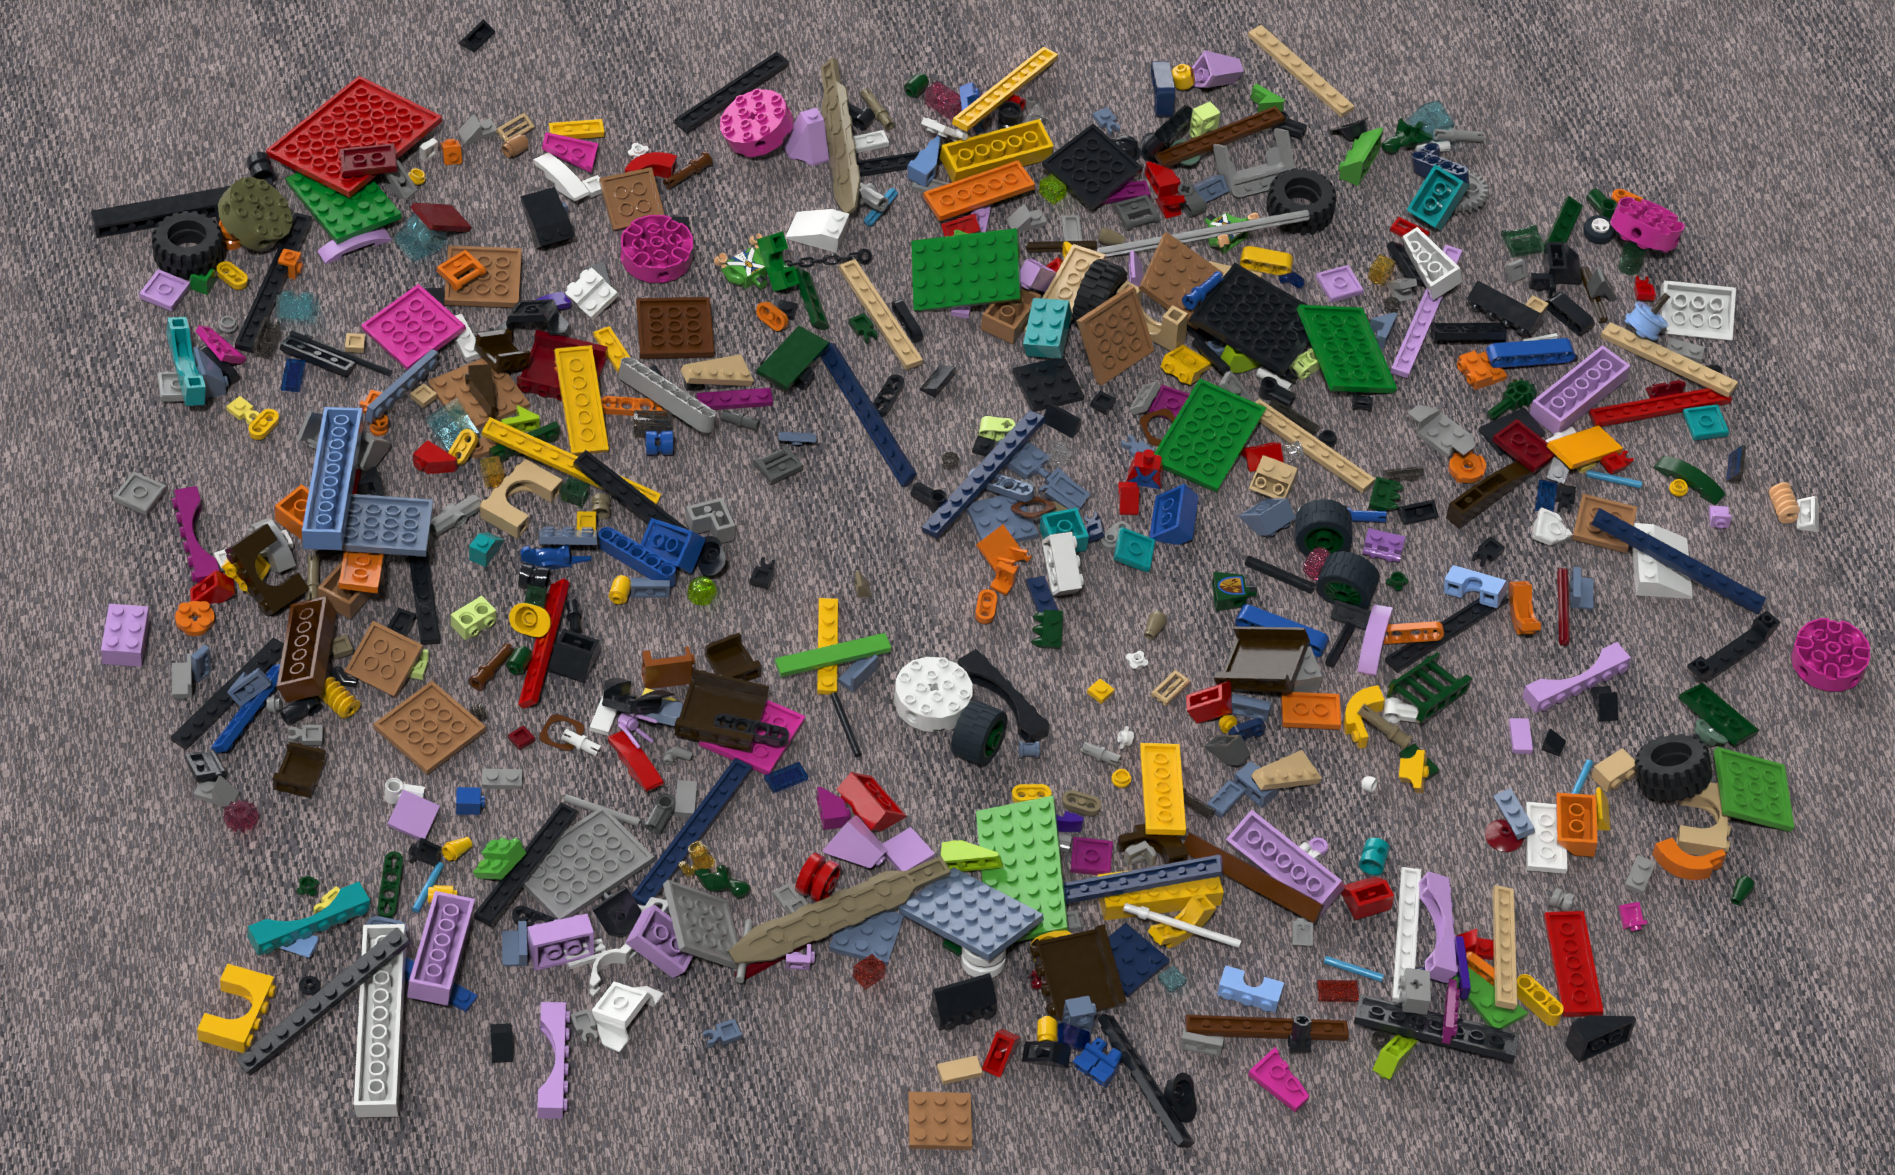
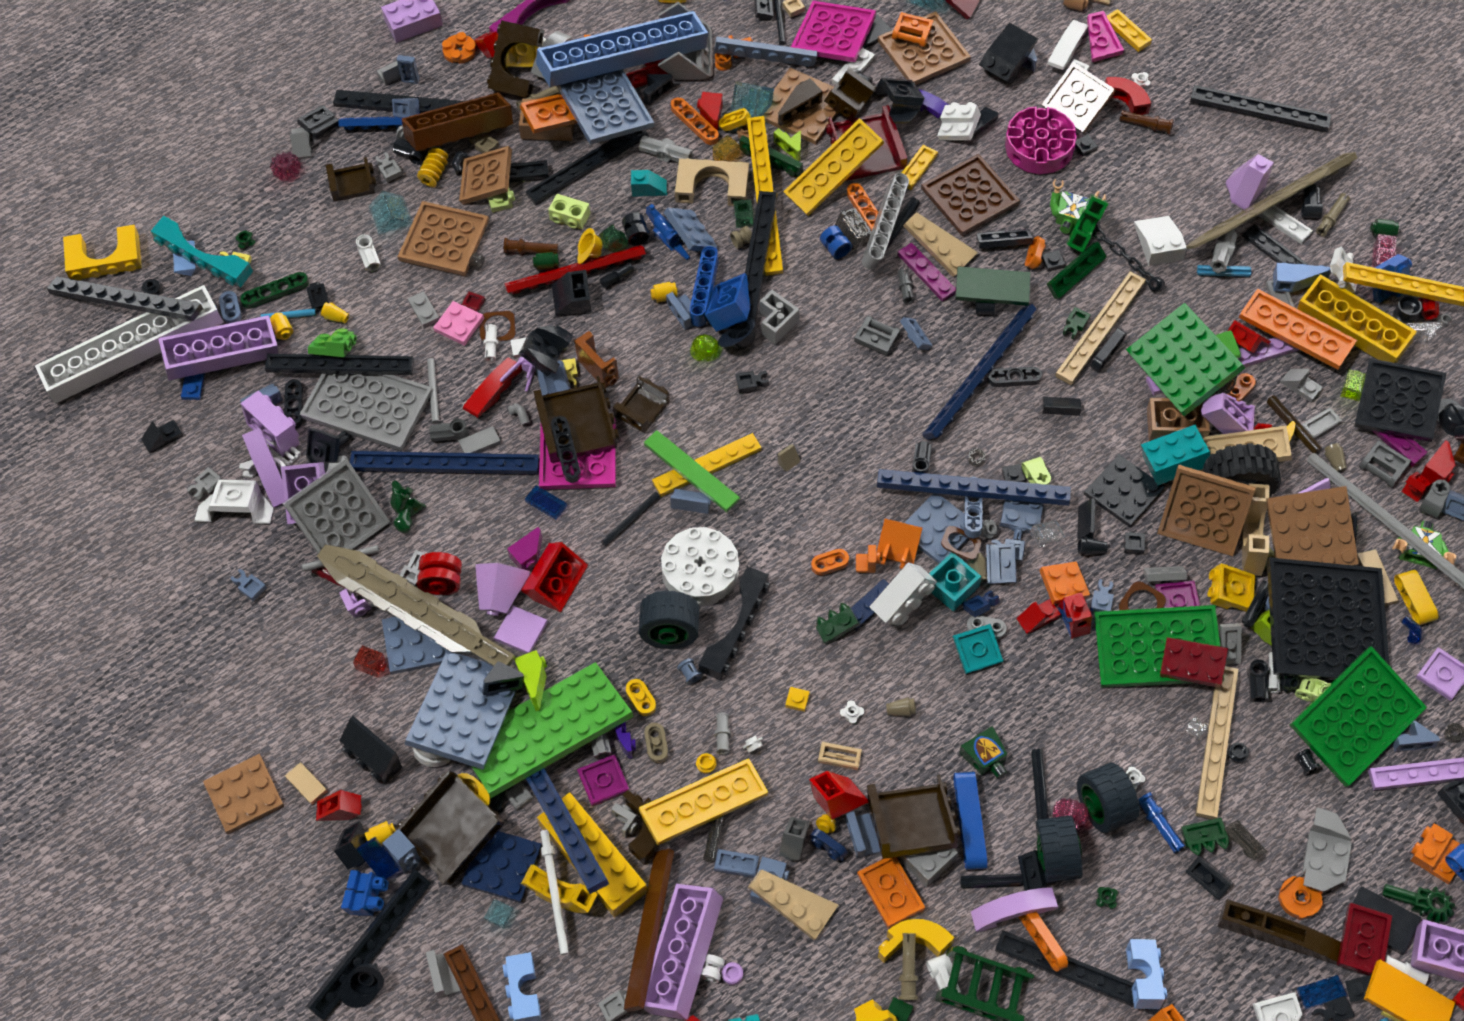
camera: 70 degrees right, 10 degrees up
(363, 759) = (389, 212): none -> clear light blue slope
(413, 815) = (347, 269): lavender tile -> none
(423, 395) = (772, 72): tan plate -> none
(434, 477) = (692, 122): none -> orange beam
(469, 801) = (384, 297): blue brick -> none
(538, 758) = (458, 323): none -> bright pink plate
(550, 1094) = (122, 494): lavender arch -> none
(586, 519) = (720, 234): yellow plate -> none
(610, 962) = (265, 466): none -> lavender slope
(700, 856) = (418, 478): clear yellow piece -> none
(741, 328) = (1004, 238): none -> black plate
(756, 122) = (1230, 135): dark pink brick -> none
(959, 872) = (502, 679): none -> black slope
(1087, 431) = (1091, 546): none -> black cone
(1109, 464) = (1063, 581): none -> orange plate
(1174, 515) = (1042, 664): blue slope -> none
(1199, 293) = (1306, 552): blue pin -> none
(1241, 417) = (1194, 662): none -> dark red plate
(1254, 454) = (1173, 705): red panel -> none
(1268, 516) = (1099, 743): sand blue slope -> none
(1274, 478) = (1146, 727): tan slope -> none
(1295, 417) = (1241, 733): clear smoke pin -> none
(1369, 783) = (836, 986): white hinge -> none
(1383, 541) = (1149, 864): medium lavender plate -> none
(1489, 549) = (1208, 967): black plate -> none

